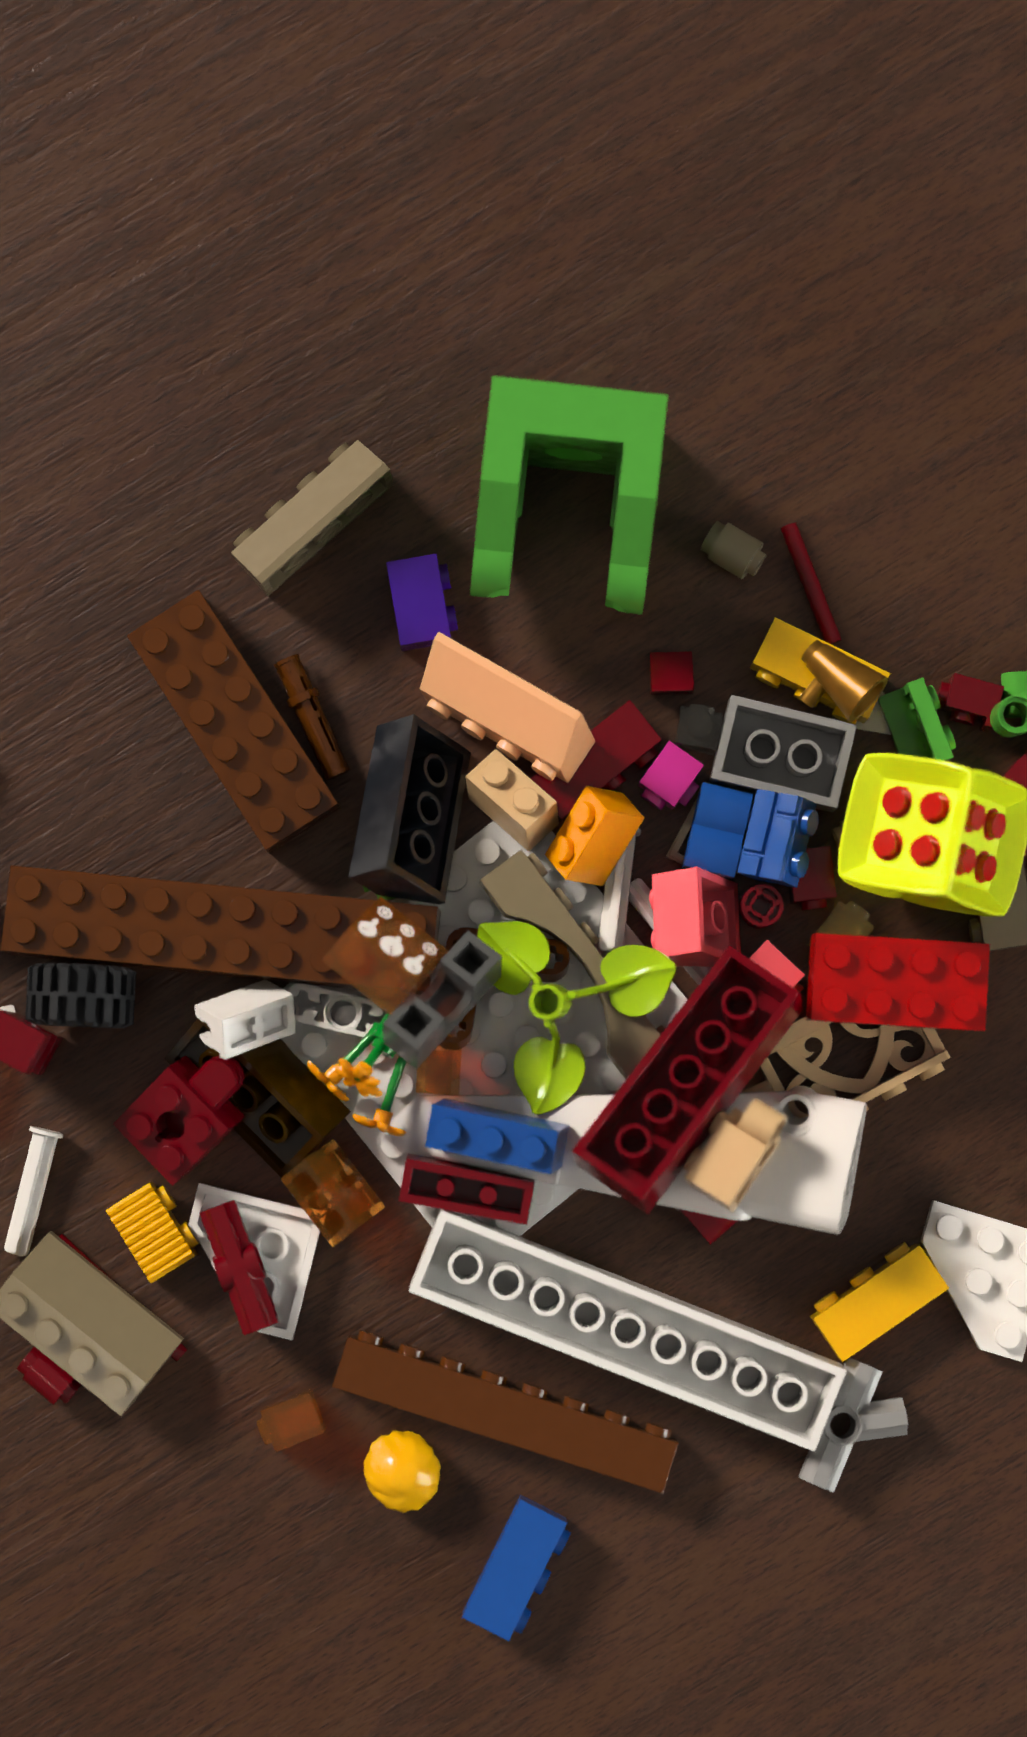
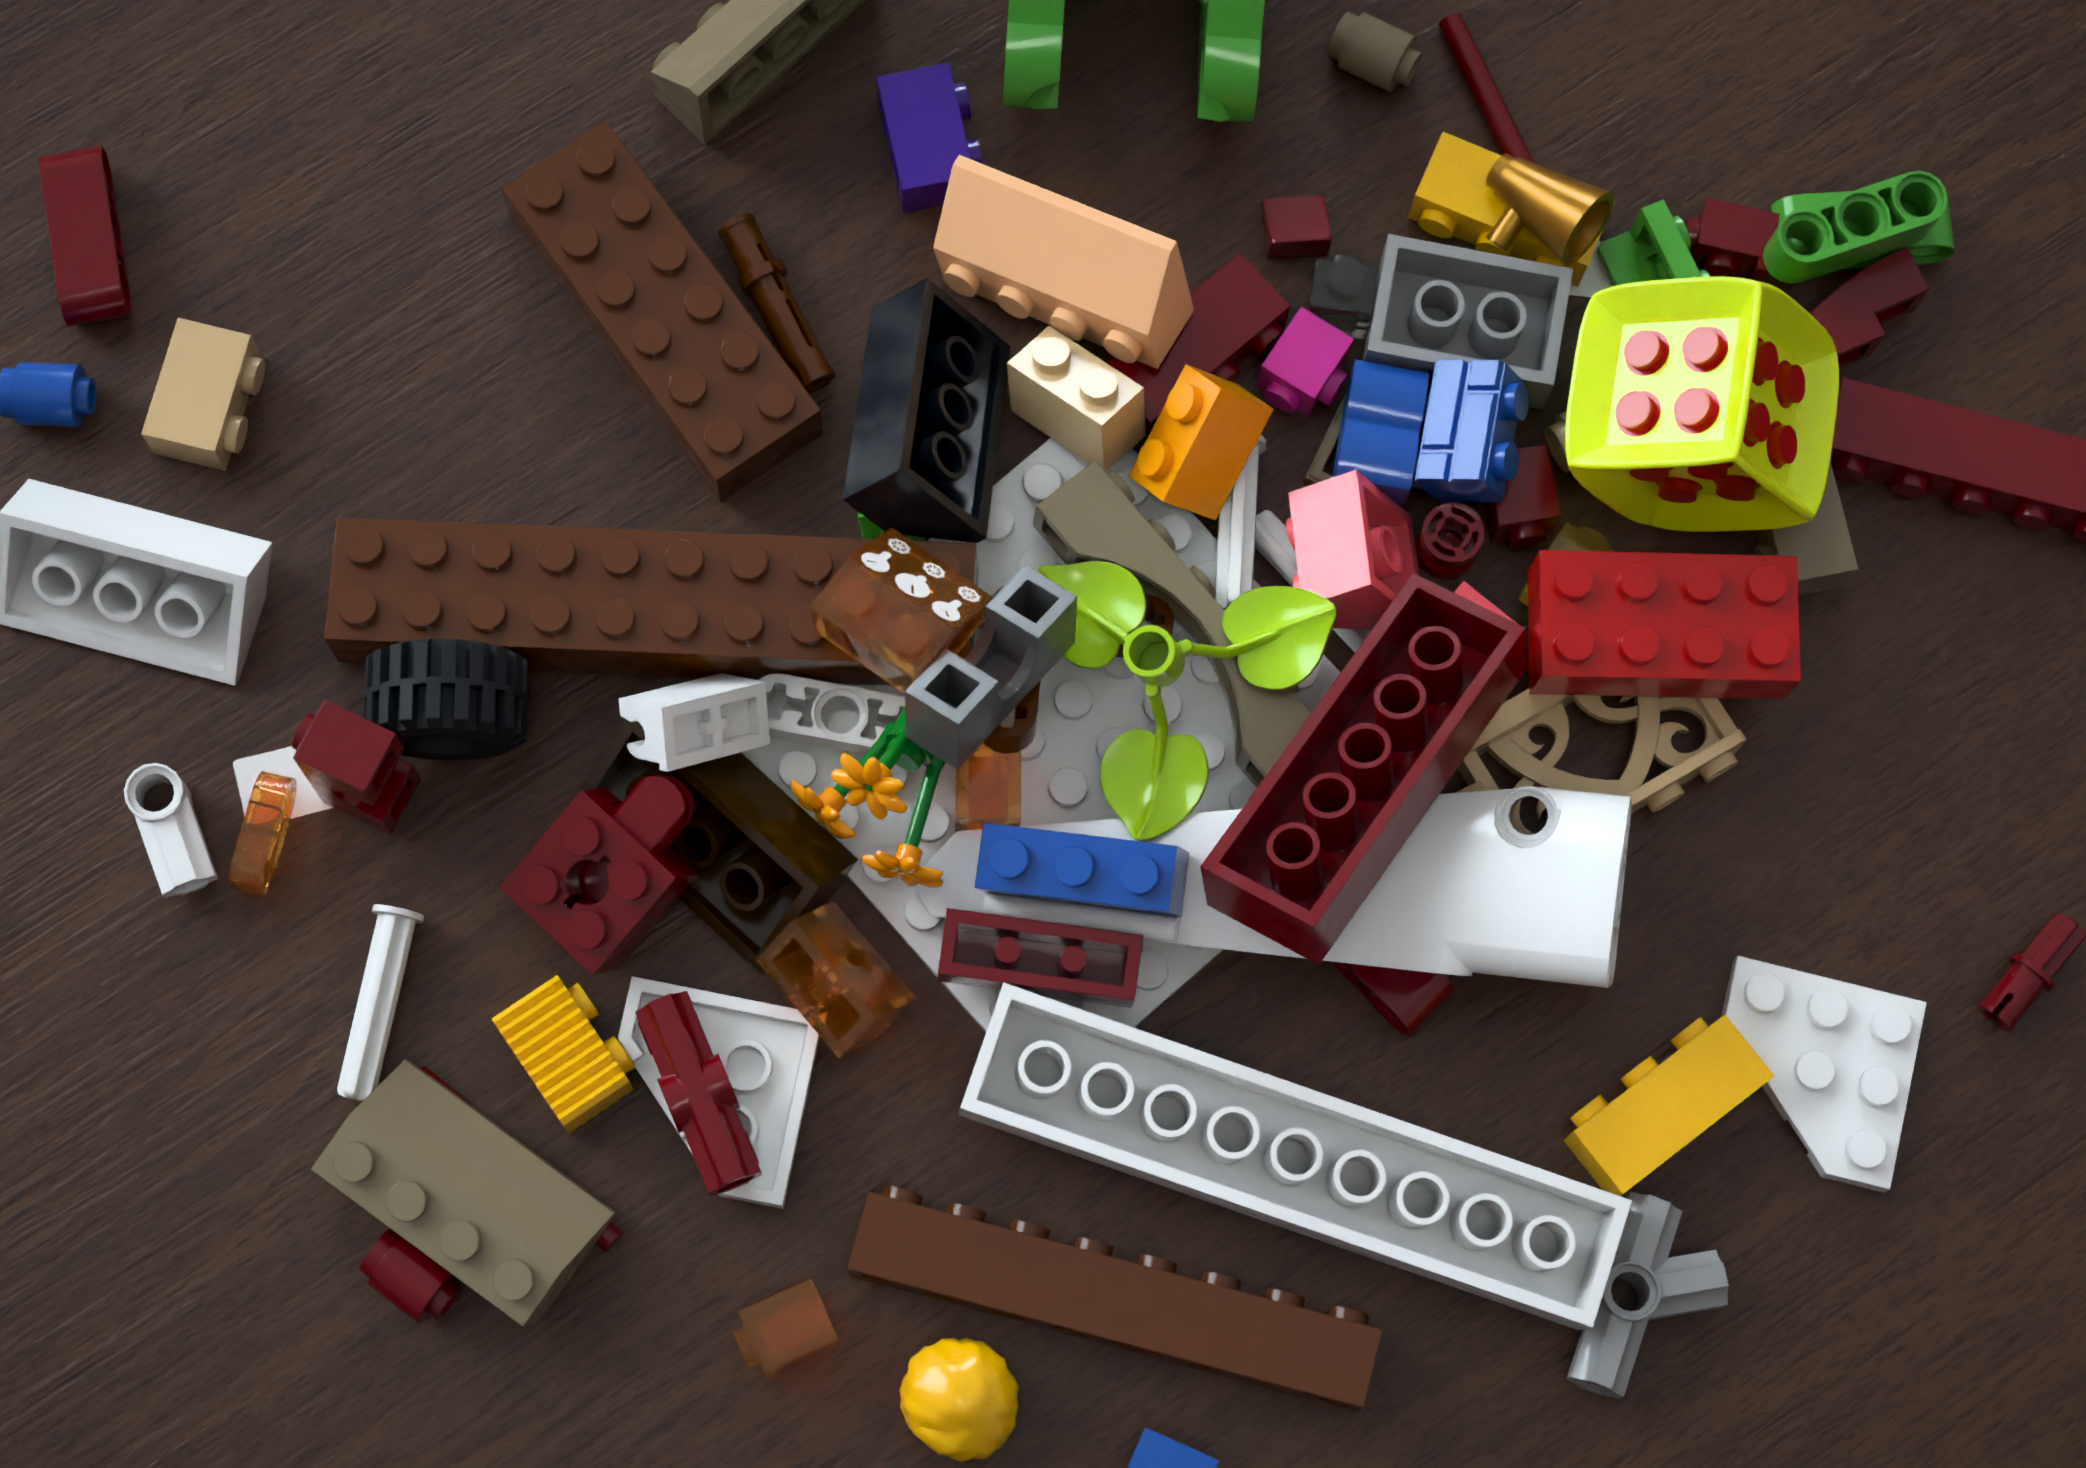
camera: 10 degrees left, 10 degrees down
(735, 1153) = (1445, 866): tan hinge -> none

